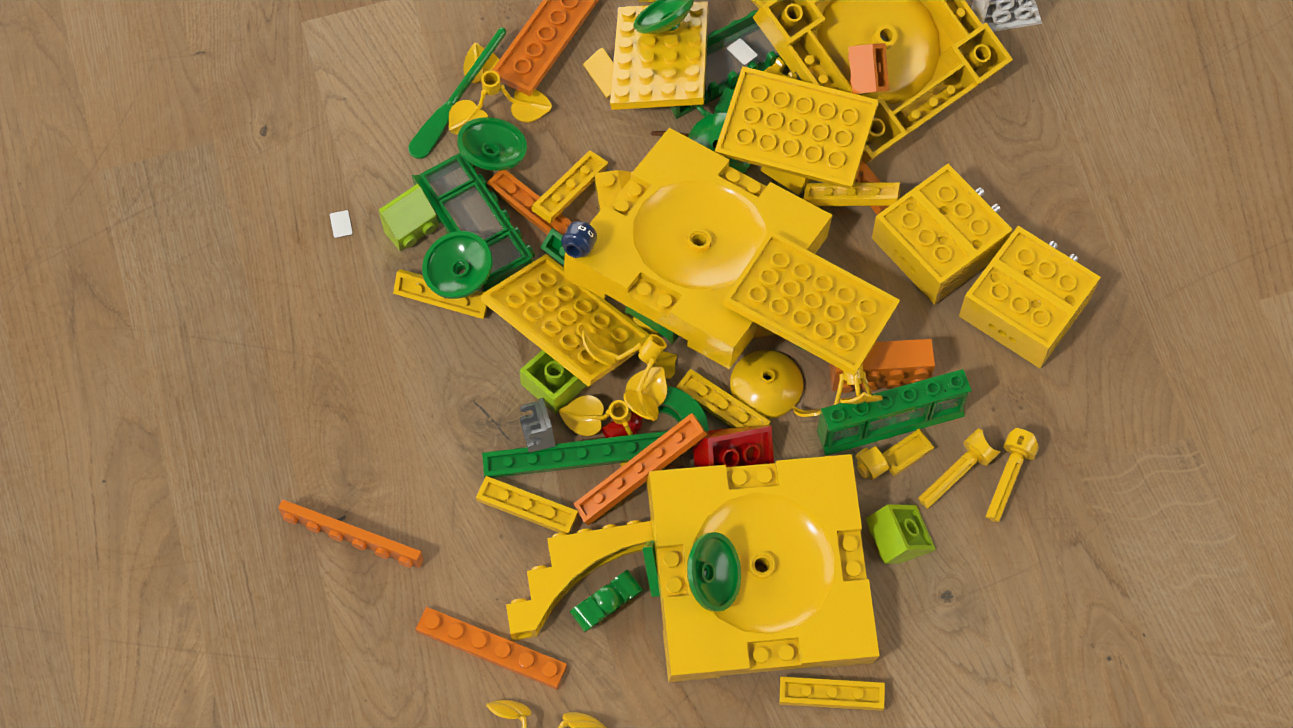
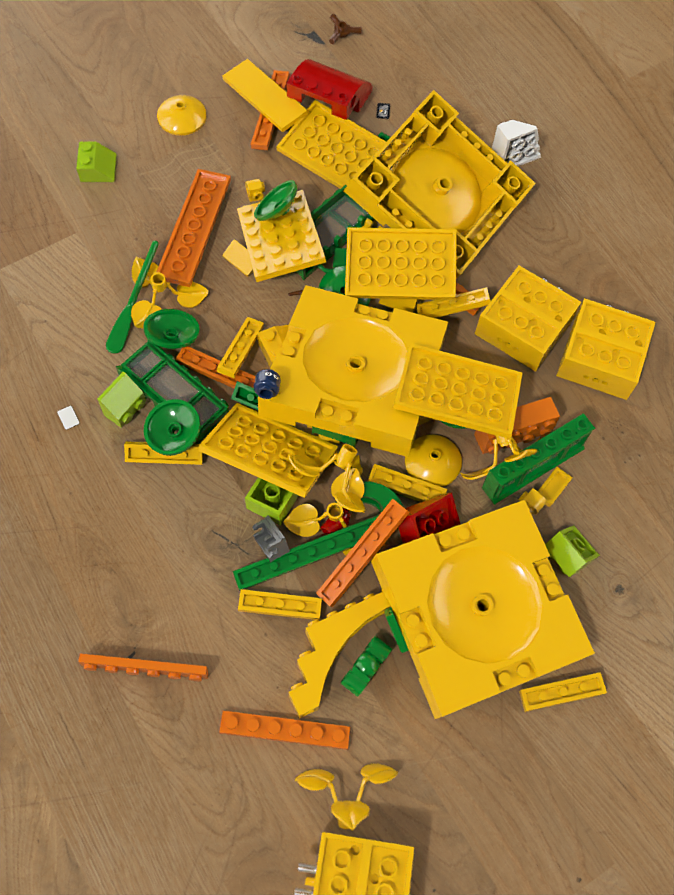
camera: 20 degrees left, 0 degrees up
(714, 572) = (453, 623): green dish -> none
(742, 51) = (339, 219): white sticker -> none
(868, 68) = (442, 208): orange slope -> none
(977, 450) = (606, 472): yellow piece -> none
(1019, 450) = (636, 465): yellow piece -> none

